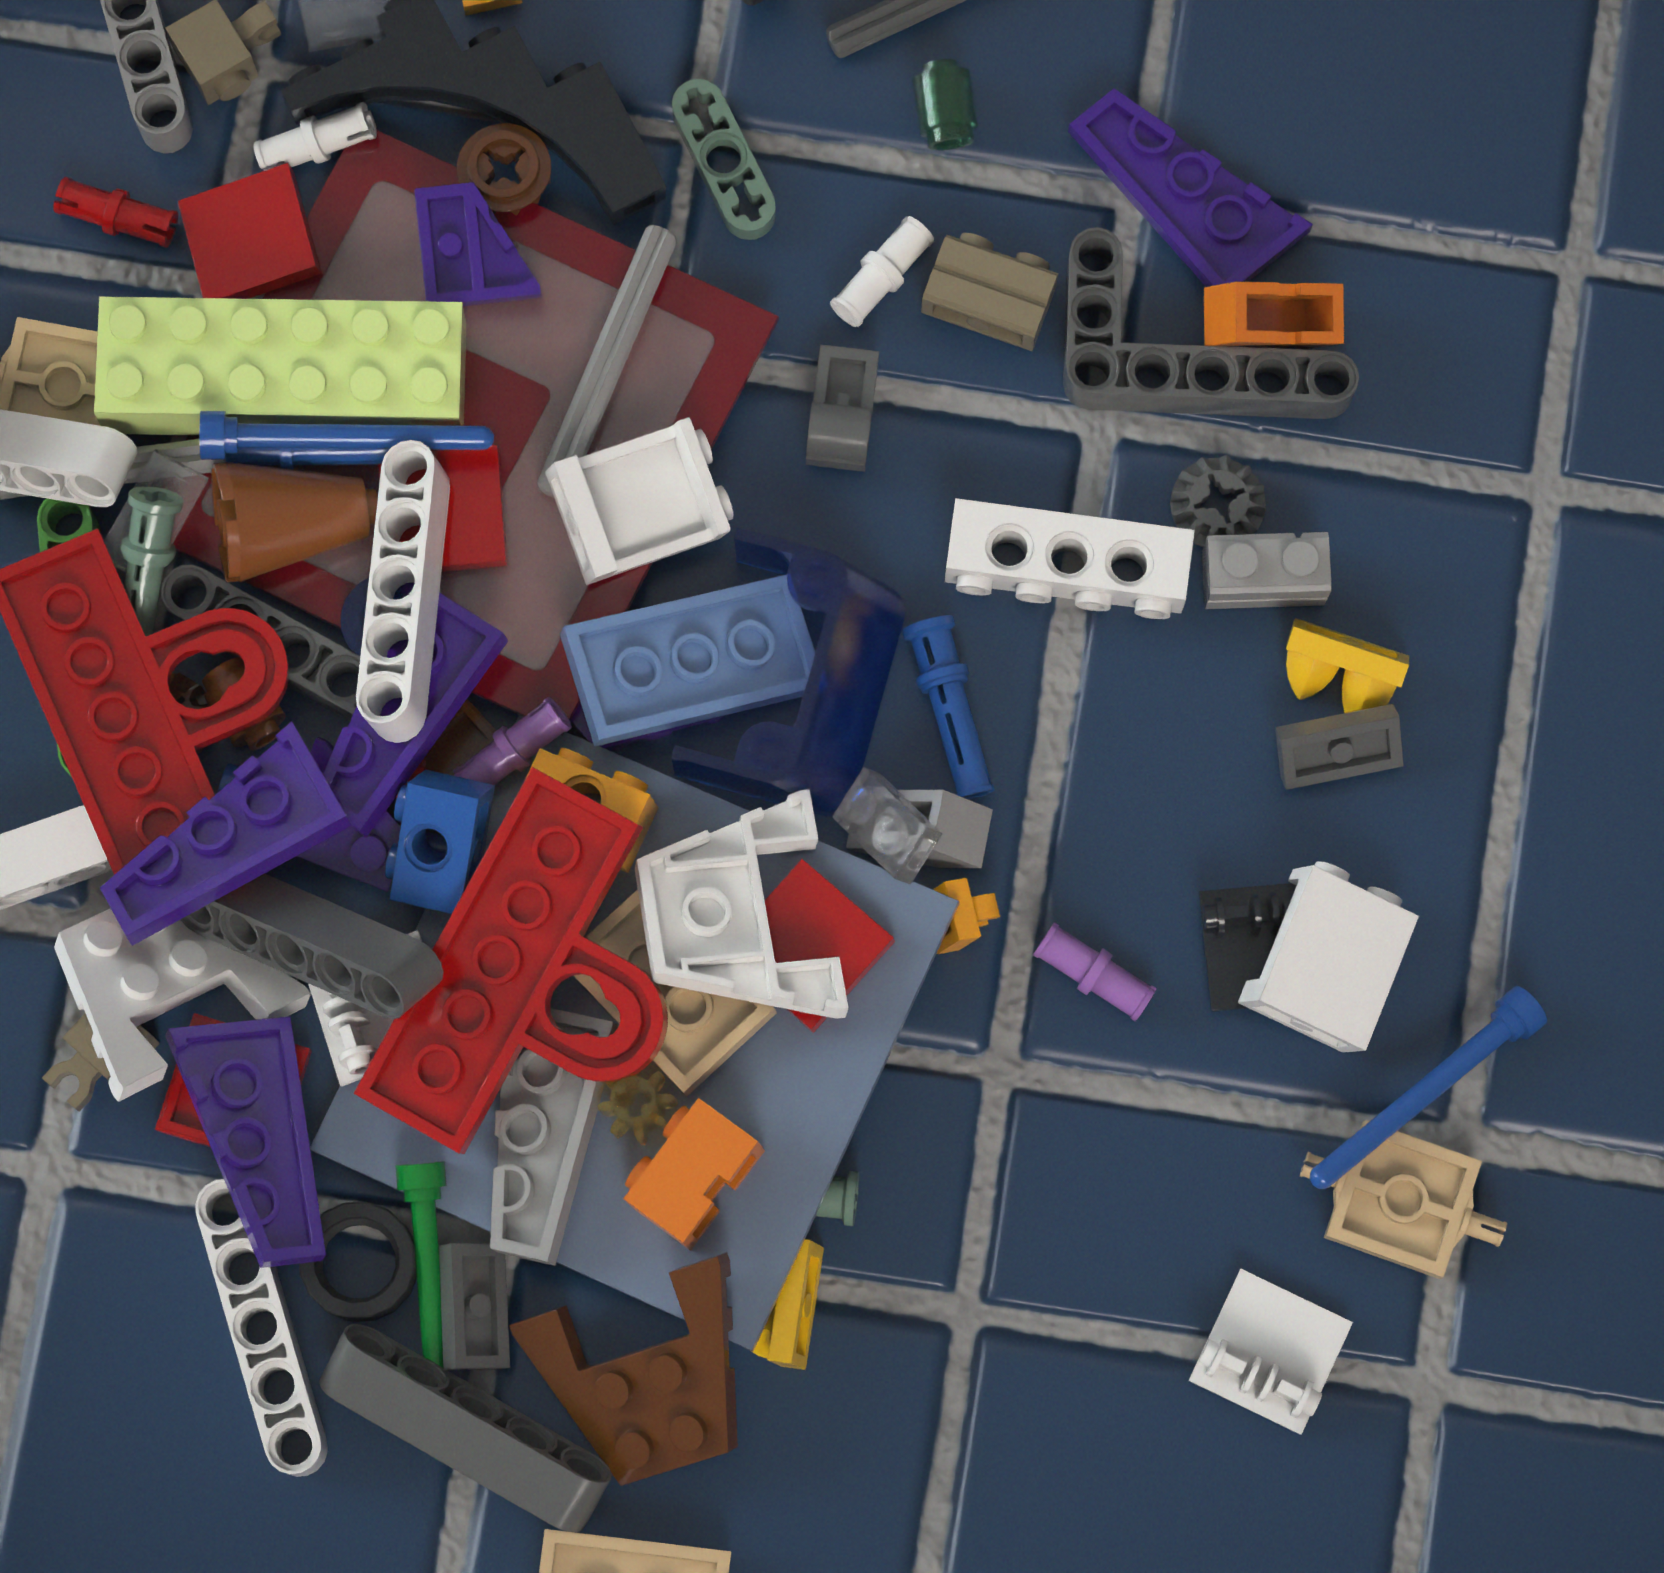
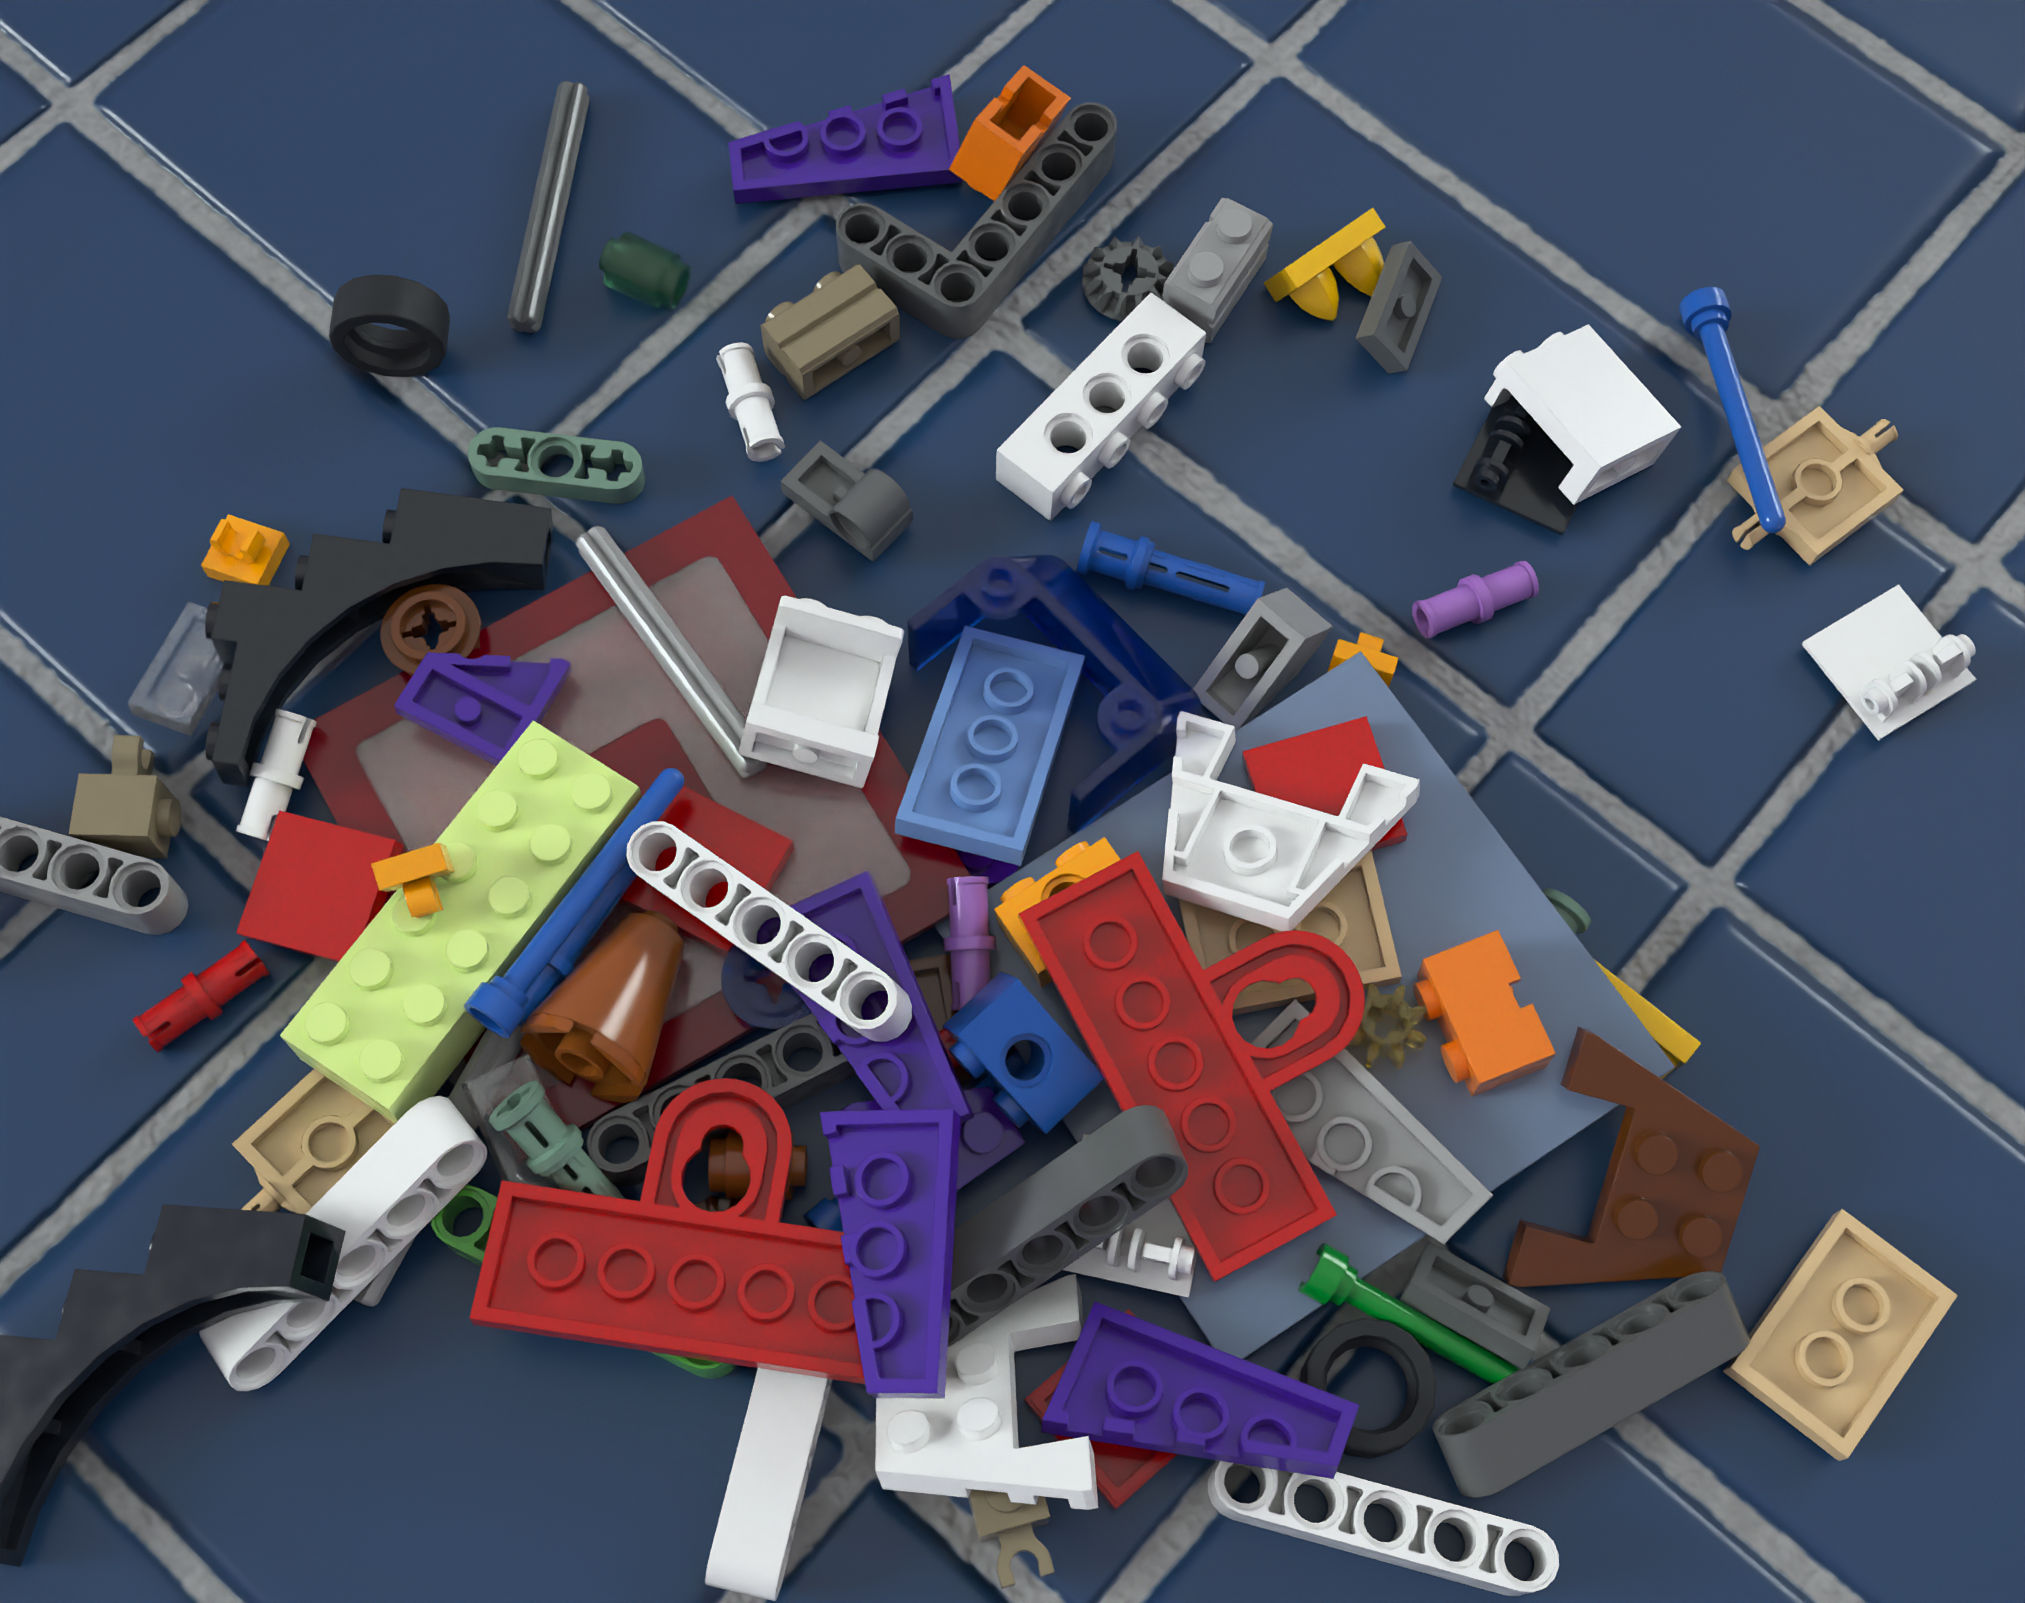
camera: 60 degrees left, 10 degrees down
(268, 309) = (415, 874): none -> light orange tile
(887, 825) = (1252, 671): clear plate -> none

